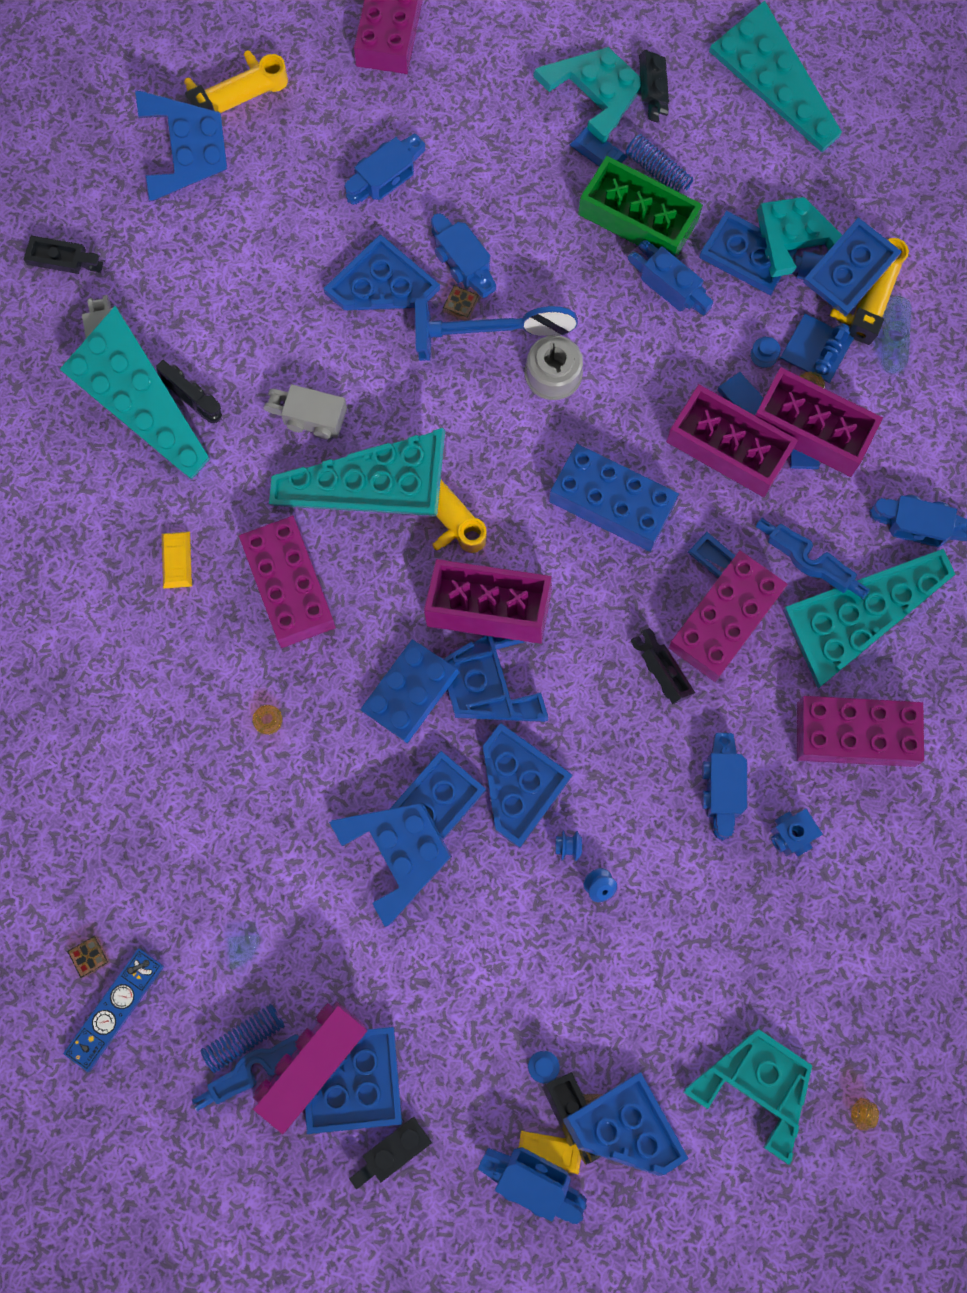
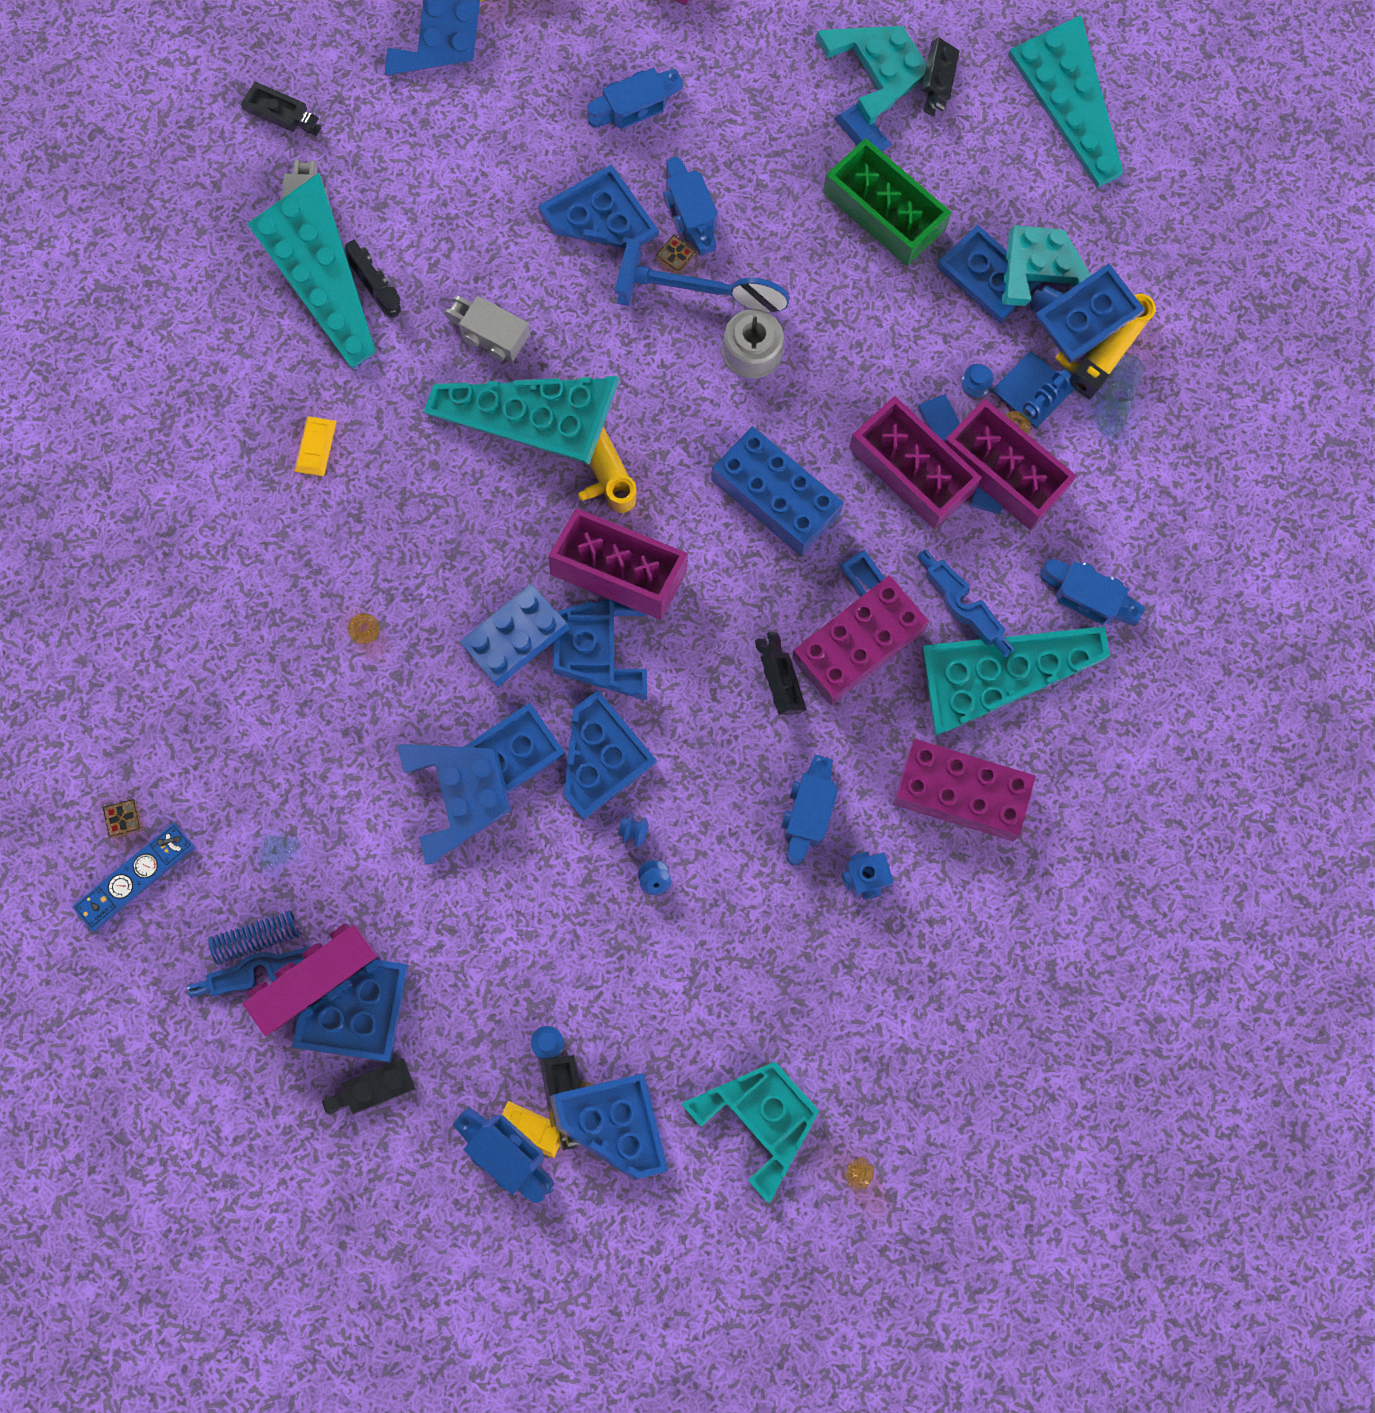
camera: 10 degrees right, 0 degrees up
(287, 581) = (420, 494): magenta brick -> none
(640, 145) = (929, 168): blue piece -> none
(671, 278) = (899, 281): blue hinge -> none

